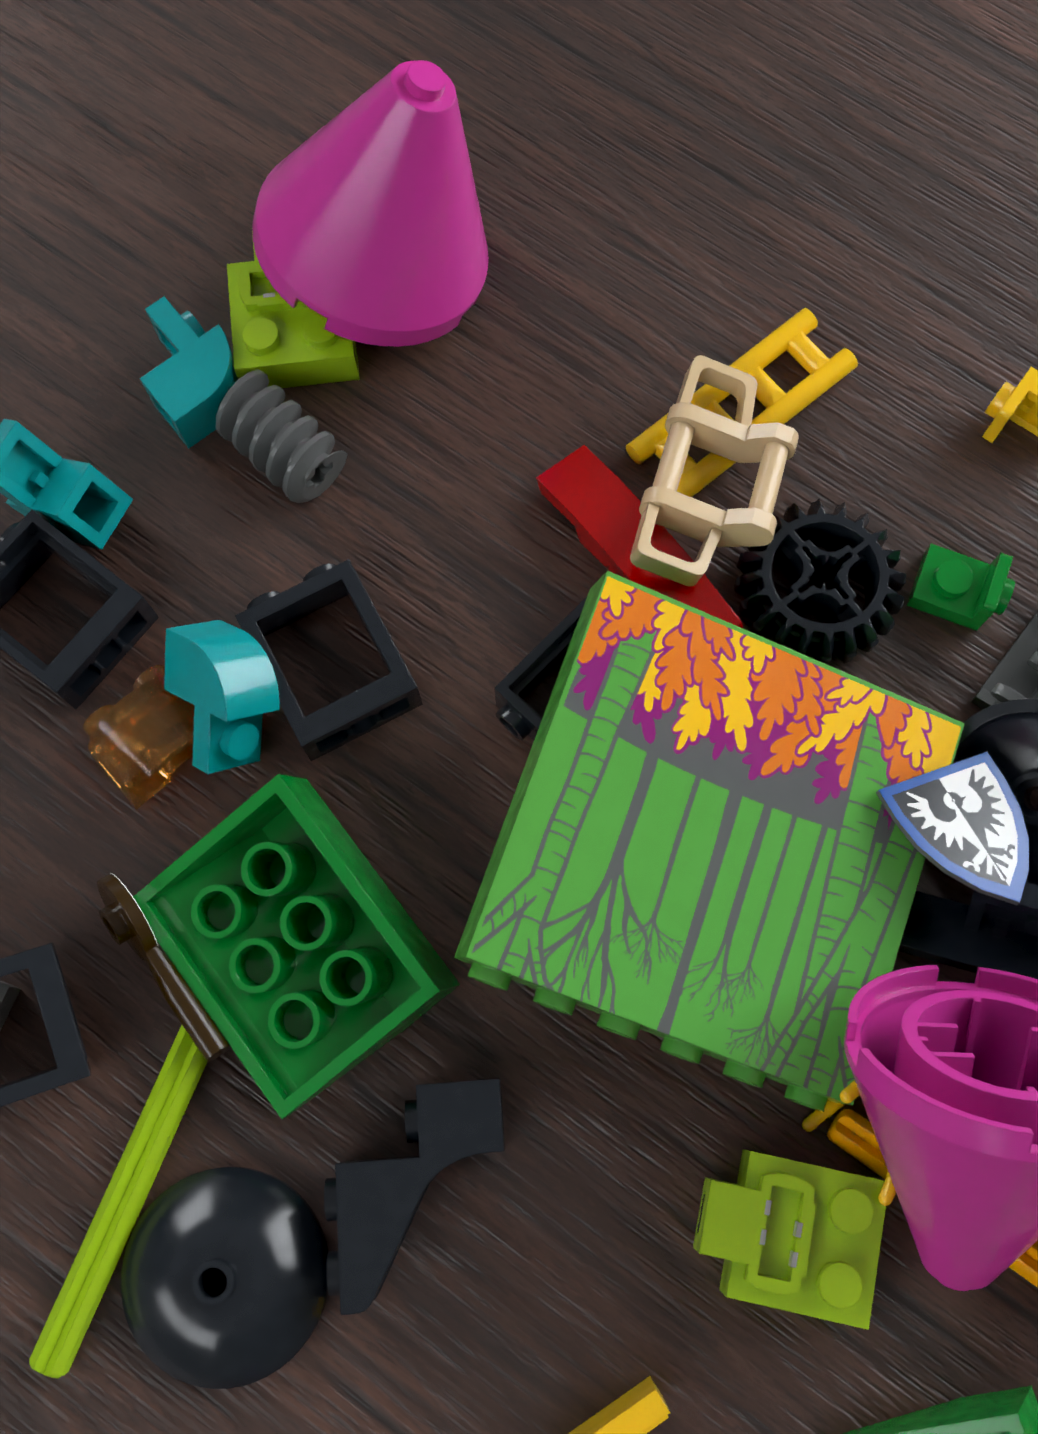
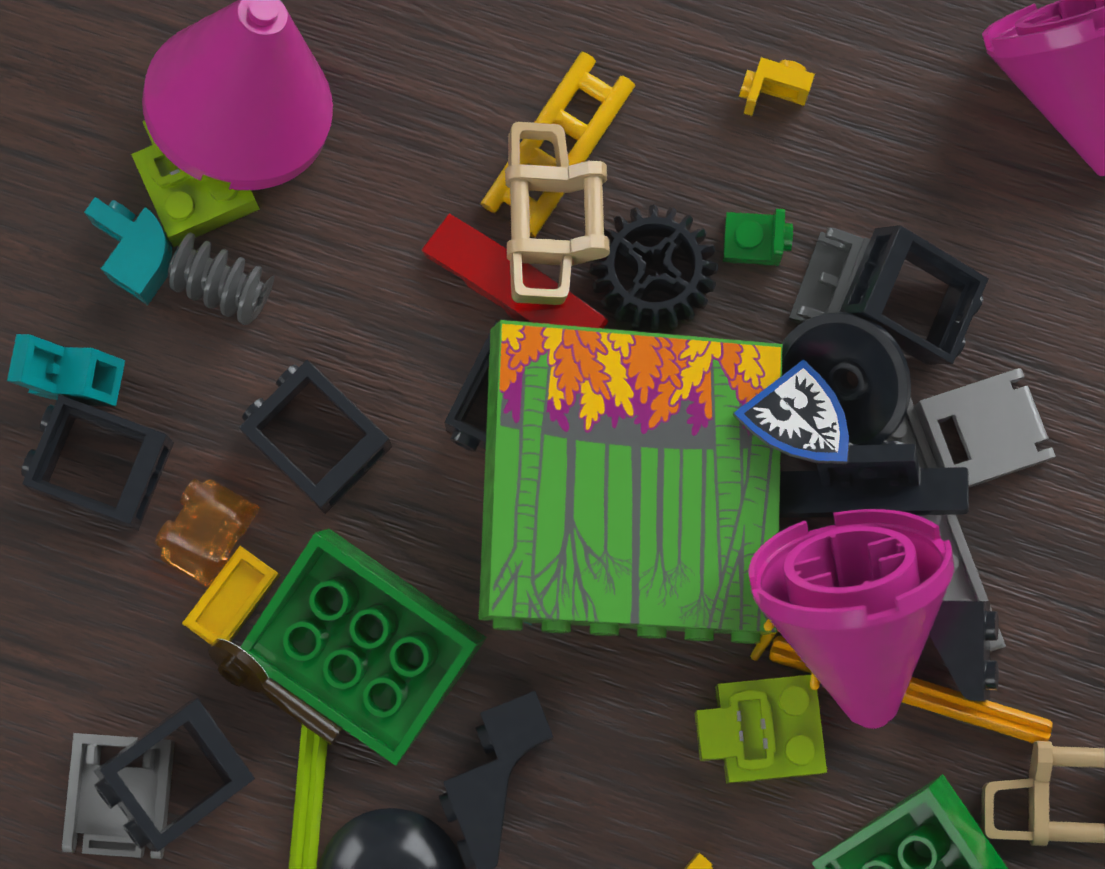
camera: 20 degrees left, 5 degrees up
(155, 829) = (231, 597): none -> yellow tile
(228, 684) = (252, 477): teal brick -> none

